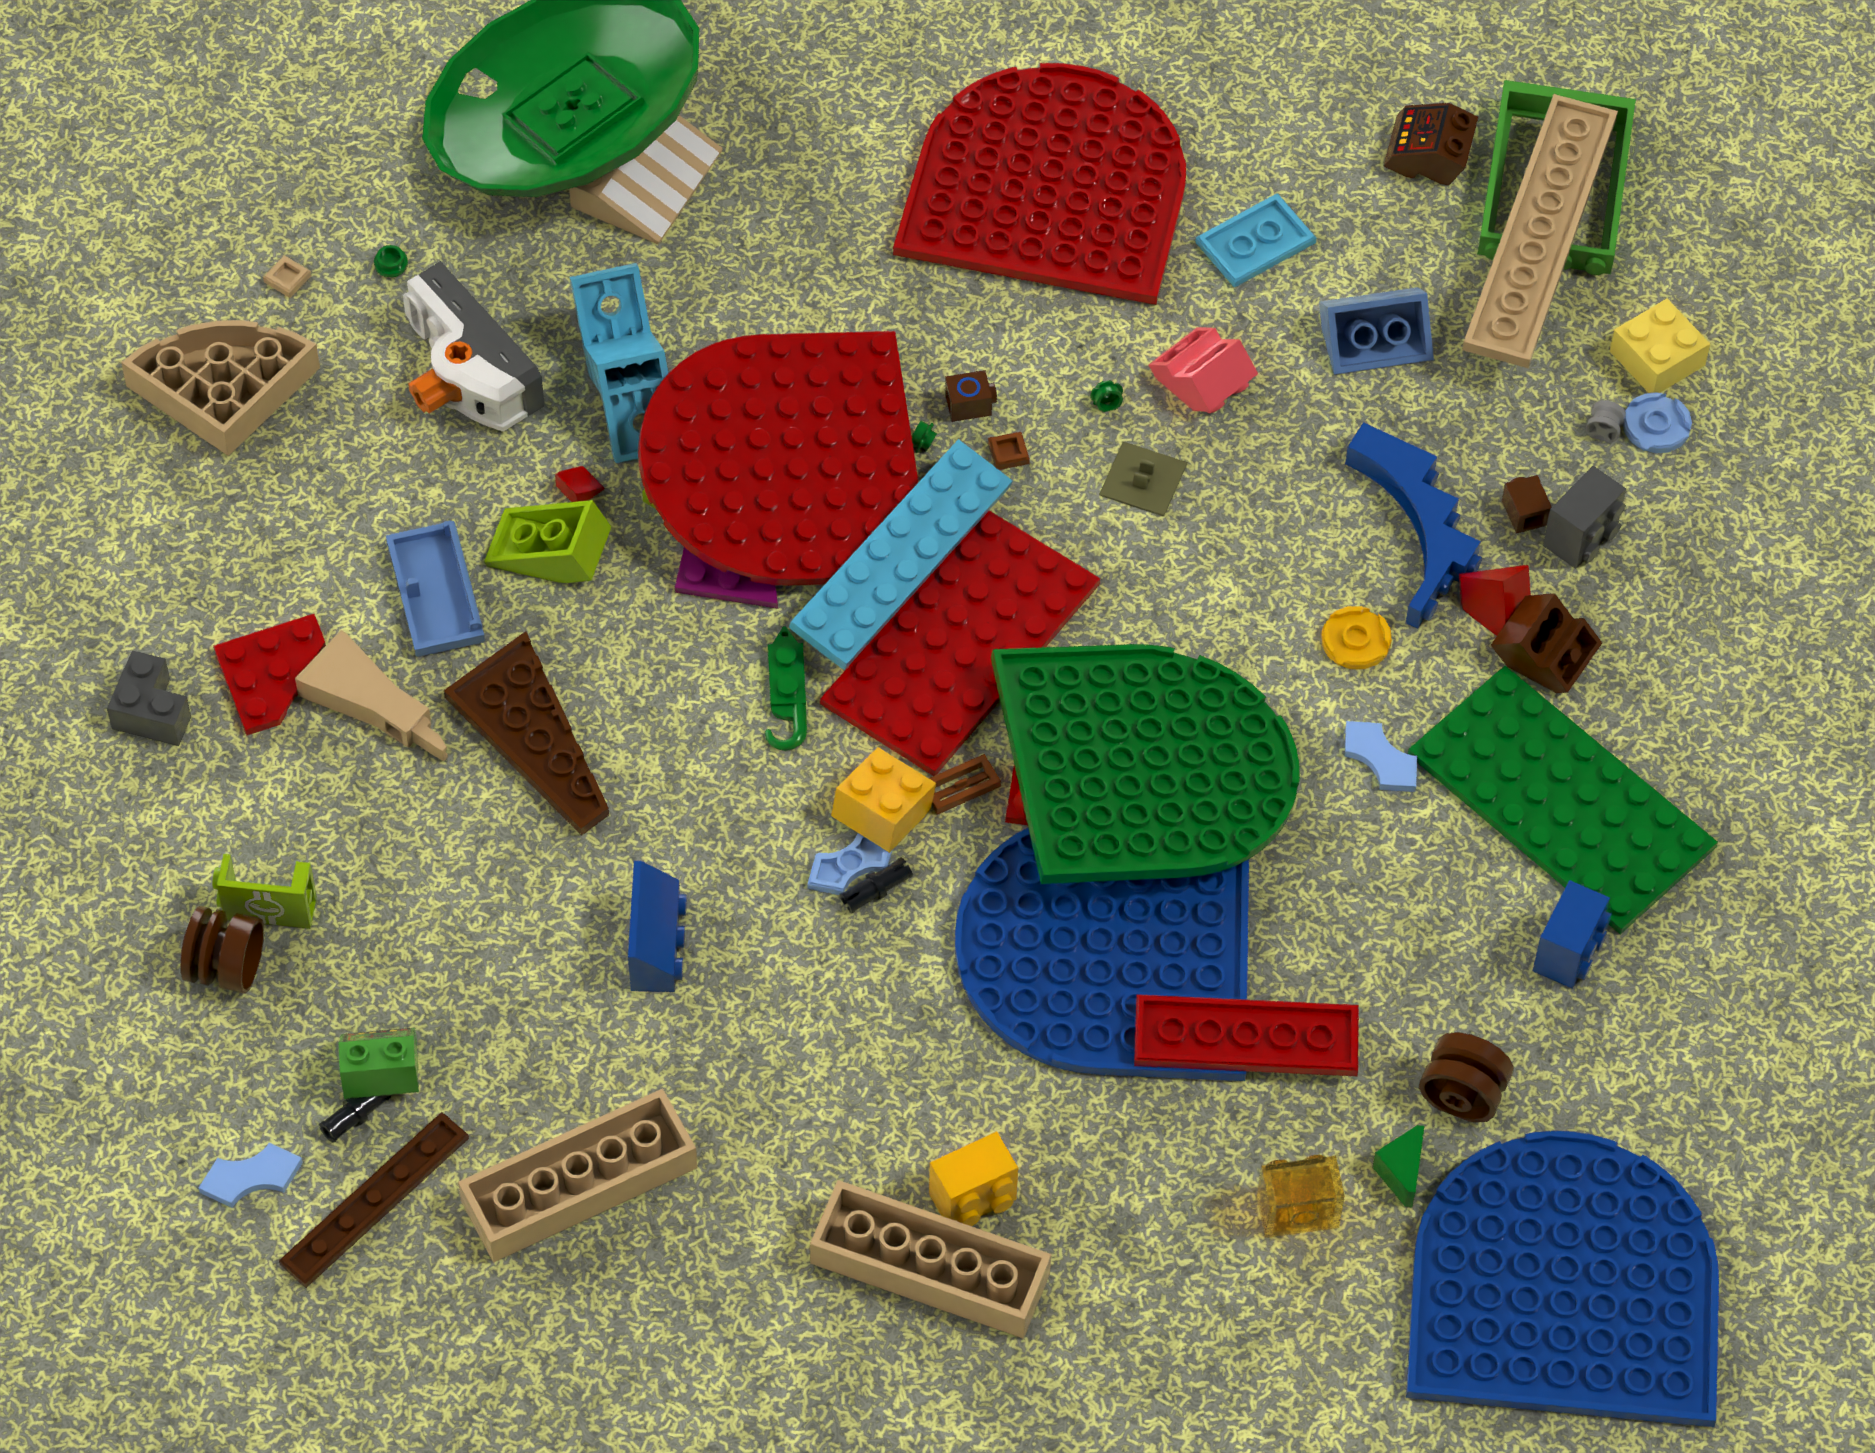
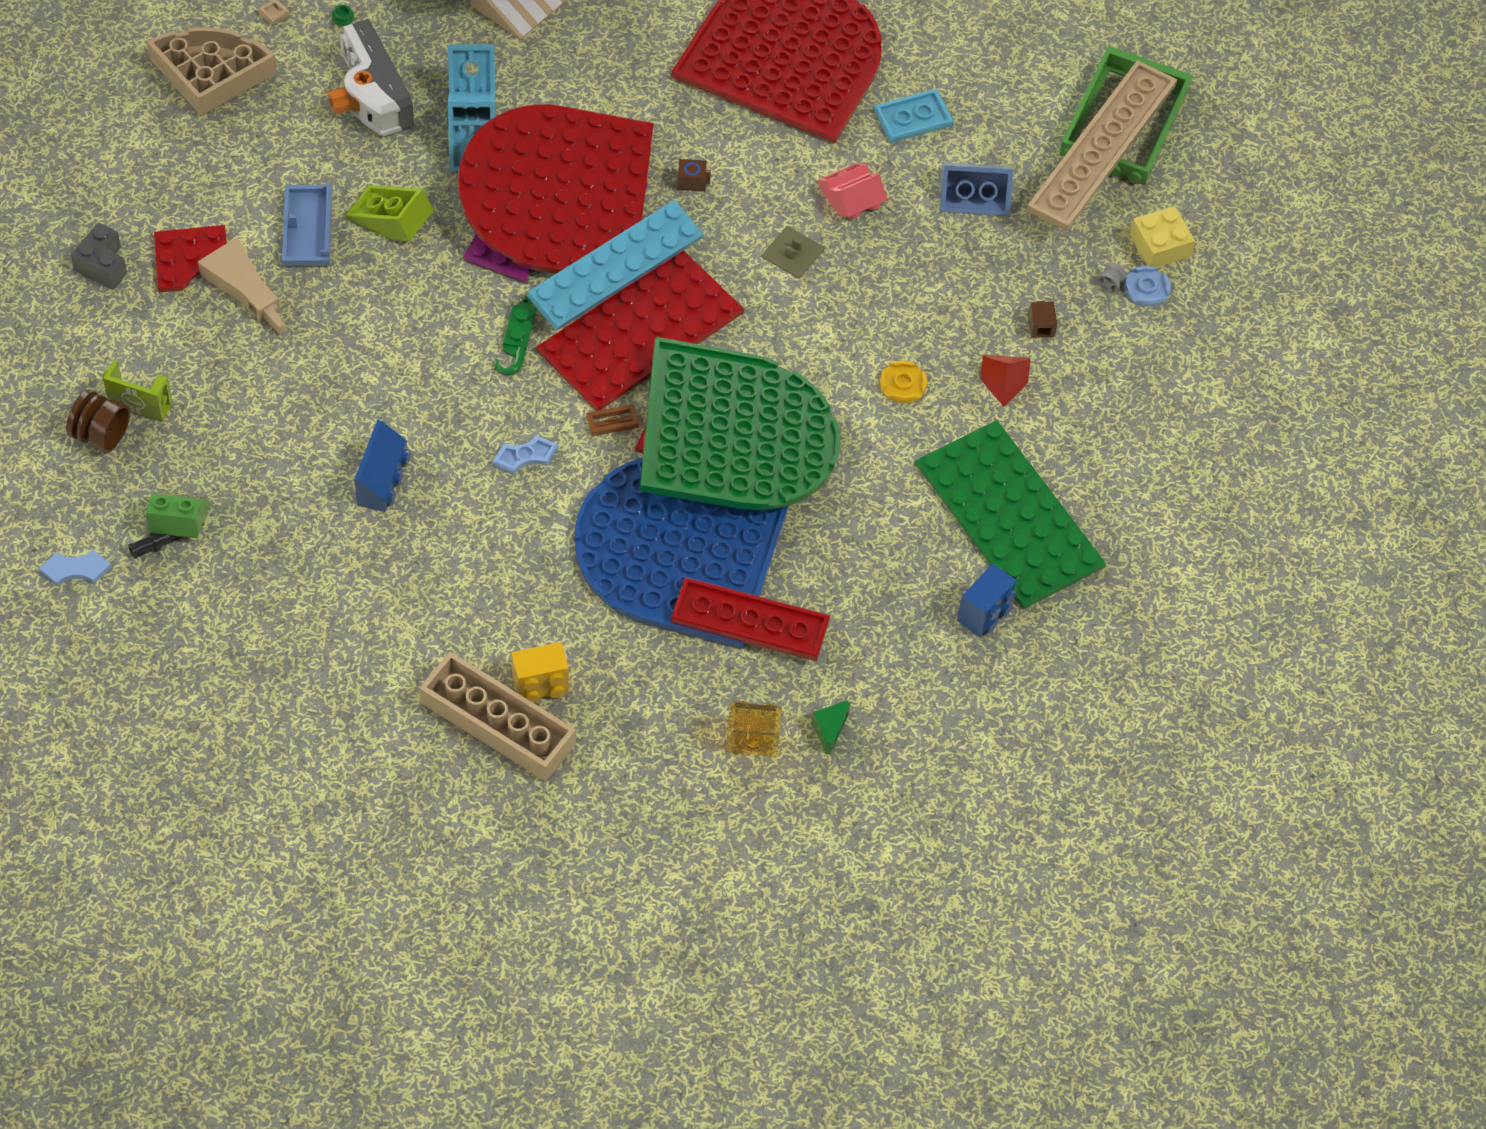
camera: 10 degrees right, 0 degrees up
(373, 1199) = (149, 600): reddish brown tile -> none
(524, 721) = (339, 320): reddish brown wing -> none
(578, 484) = (421, 178): red slope -> none
(578, 1175) = (284, 612): tan brick -> none
(876, 885) = (537, 472): black pin -> none
(883, 799) = (556, 418): yellow brick -> none
(923, 436) = (654, 195): green plate -> none
(1008, 450) = (708, 215): dark orange tile -> none
(1107, 392) = (779, 194): green plate -> none
(1369, 745) = (901, 469): light blue tile -> none
(1410, 478) = (969, 287): blue arch -> none
(1431, 141) = (1048, 75): reddish brown piece -> none
(1466, 1077) = (888, 676): reddish brown wheel -> none
(1546, 643) = (1028, 411): reddish brown piece -> none
(1565, 1285) = (916, 827): blue plate -> none
(1585, 518) = (1077, 335): dark grey brick -> none

